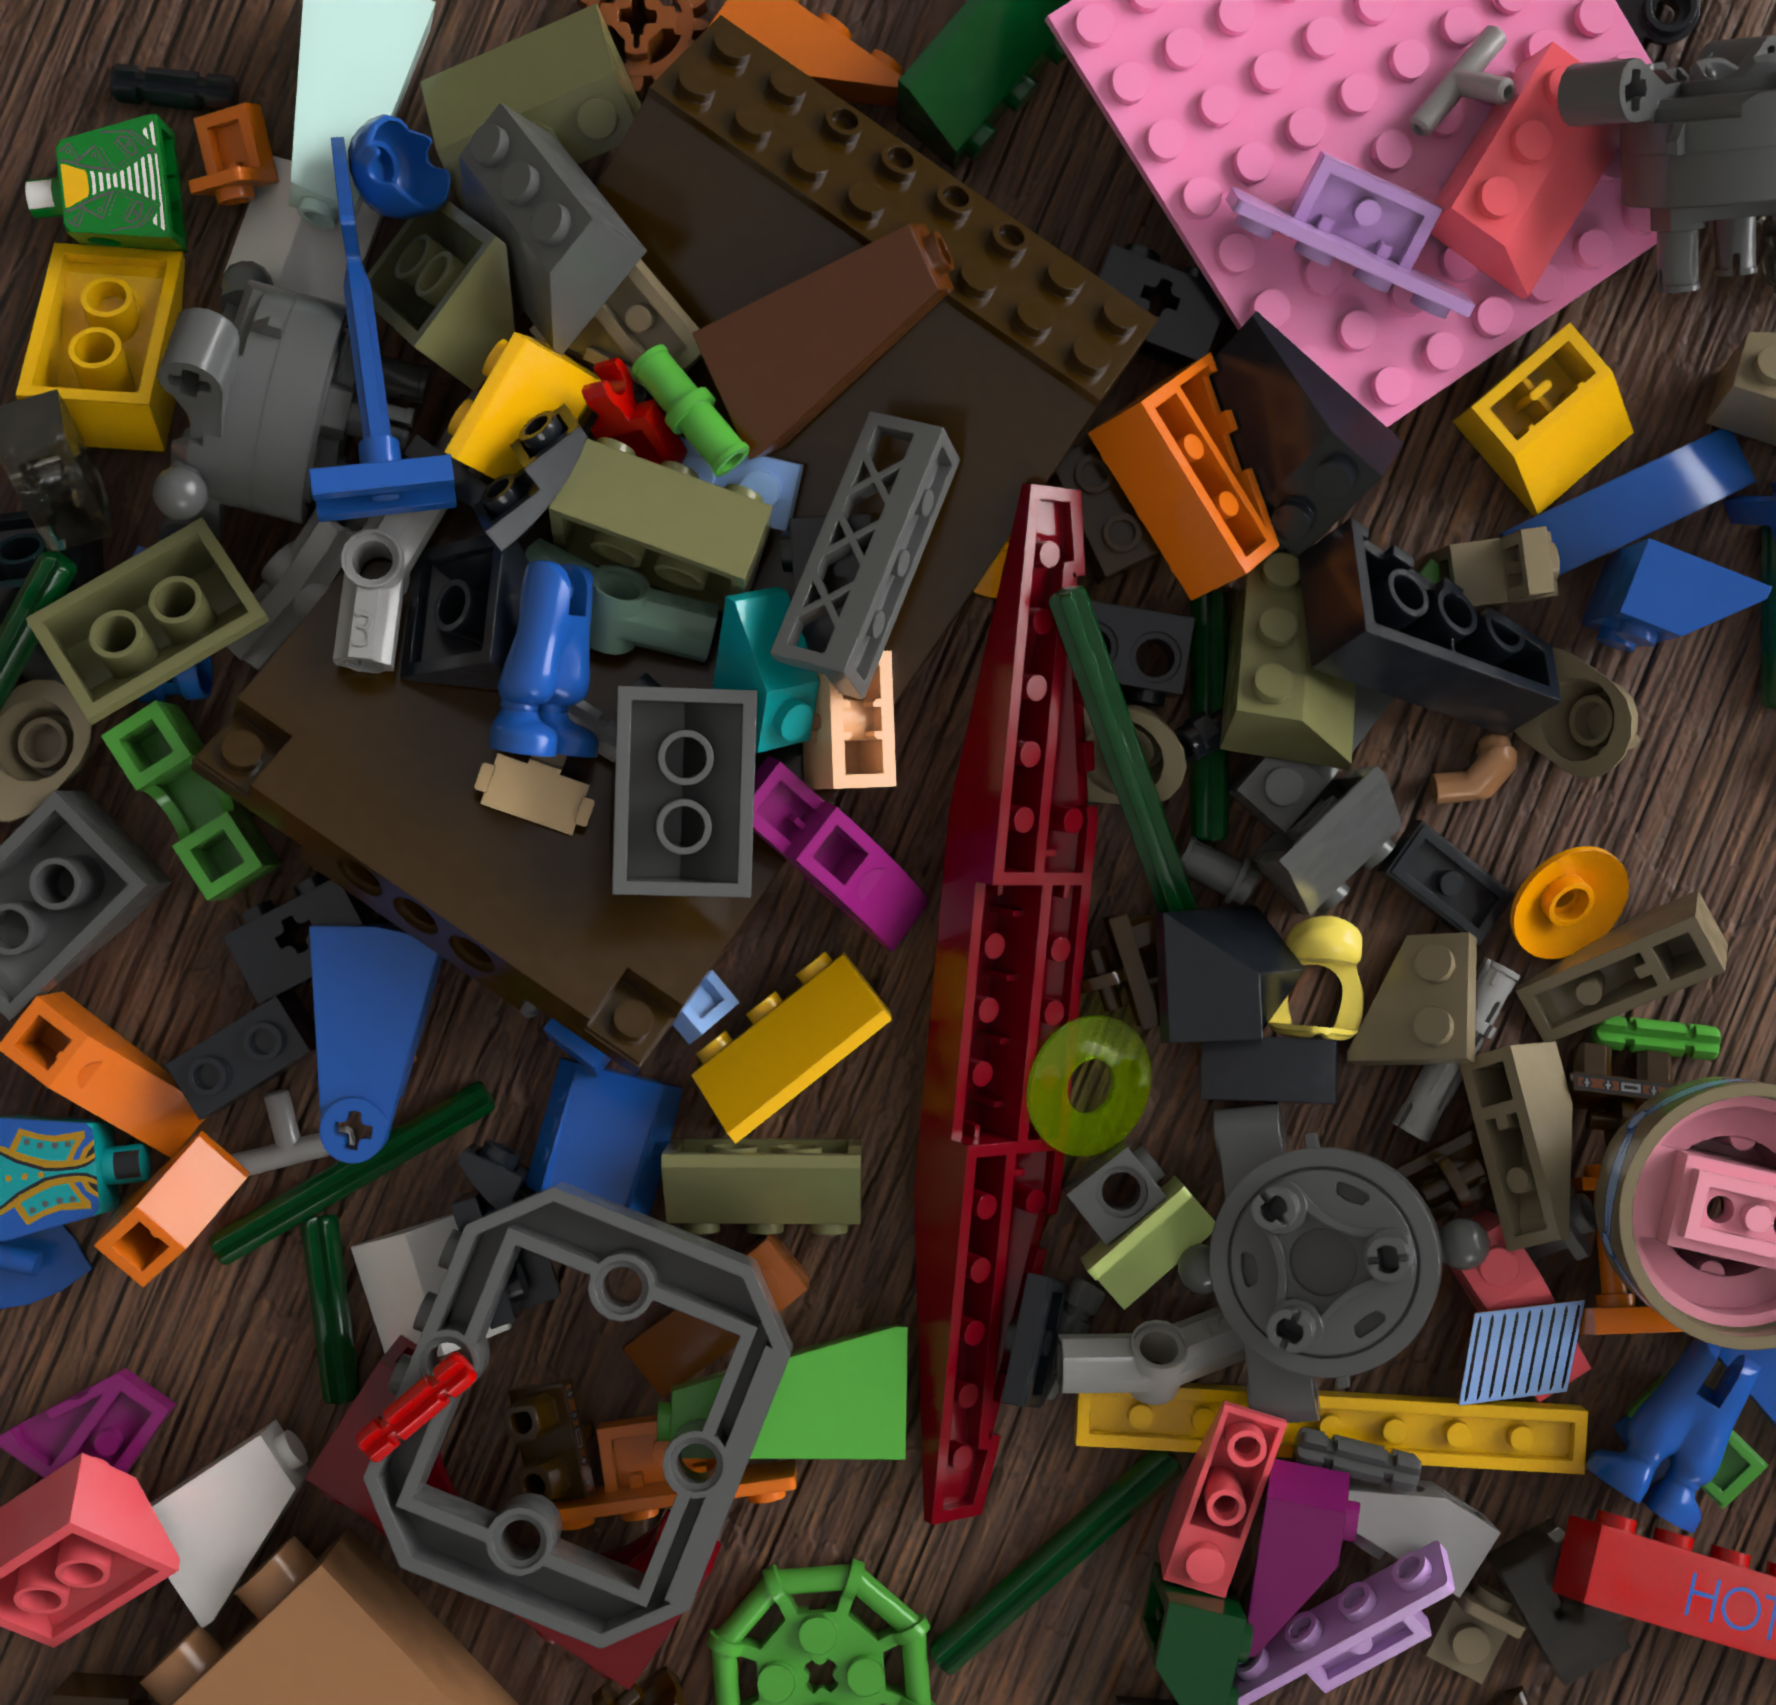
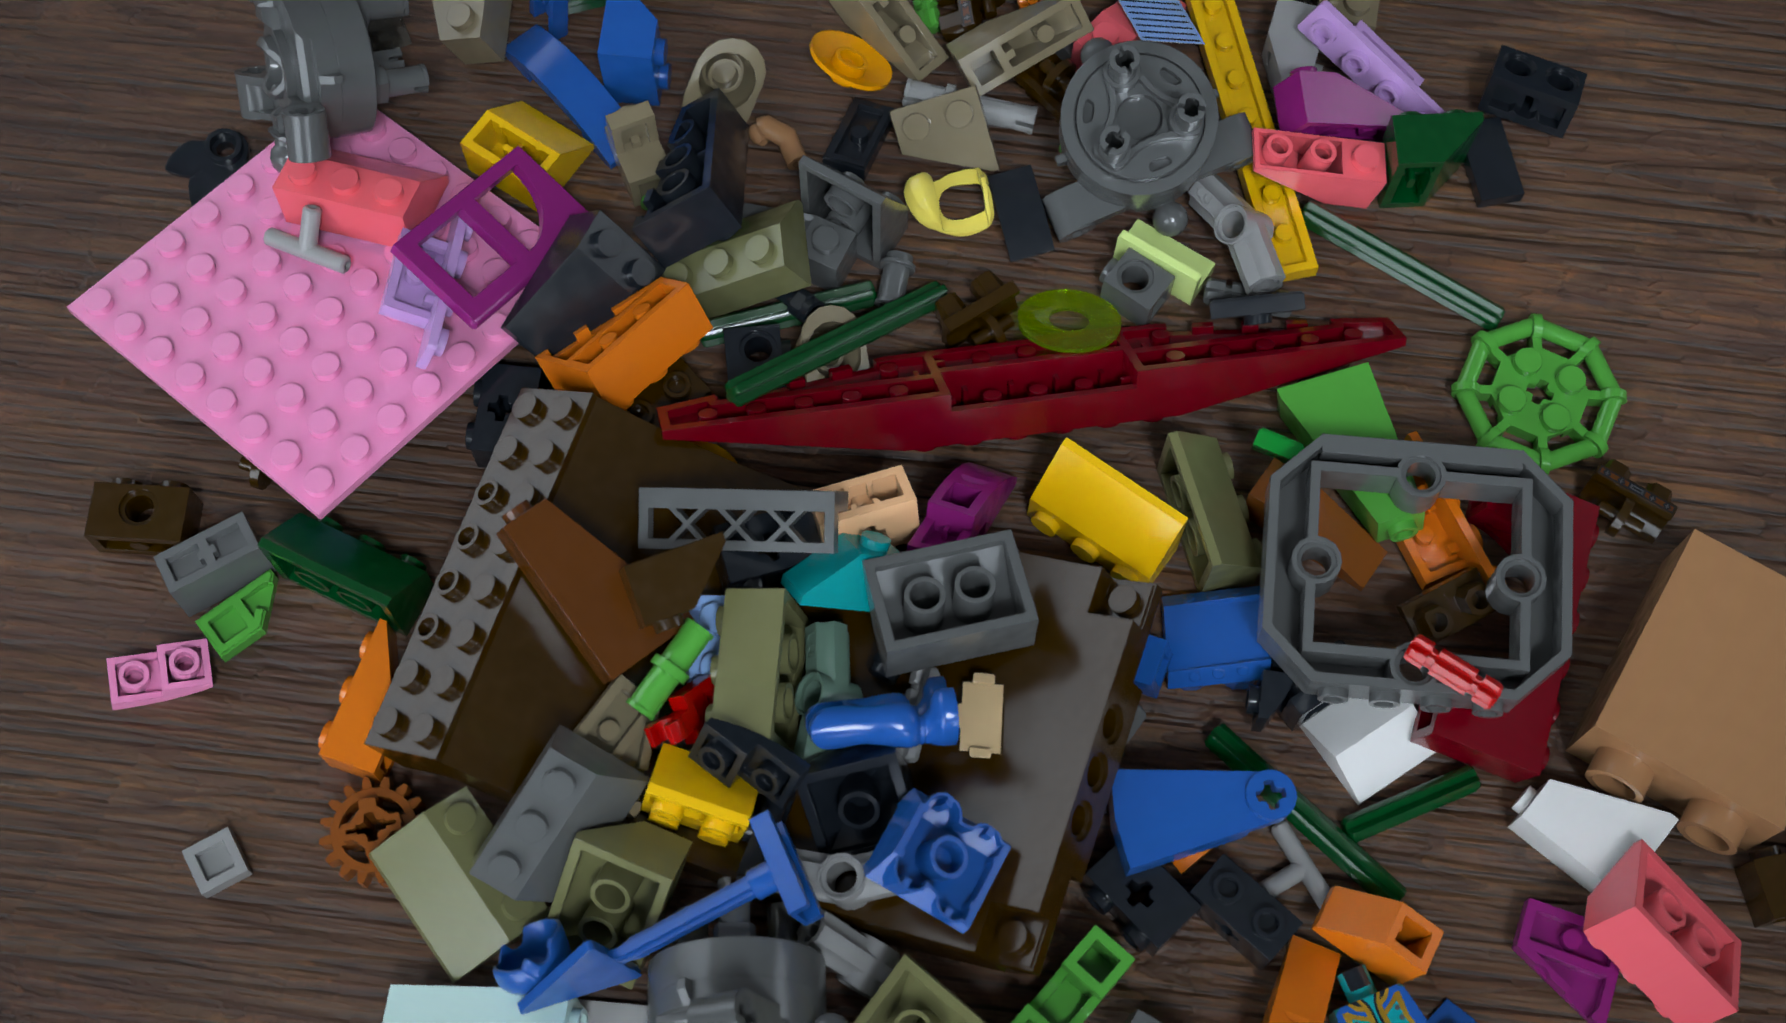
camera: 110 degrees left, 20 degrees down
(348, 678) = (937, 858): none -> blue slope
(788, 433) = (670, 582): none -> dark brown slope
(823, 1299) = (1276, 445): none -> green tile
(1220, 974) = (966, 252): black slope -> none
(1358, 1458) = (1261, 89): dark grey axle -> none
(1425, 429) = (553, 209): none -> magenta window

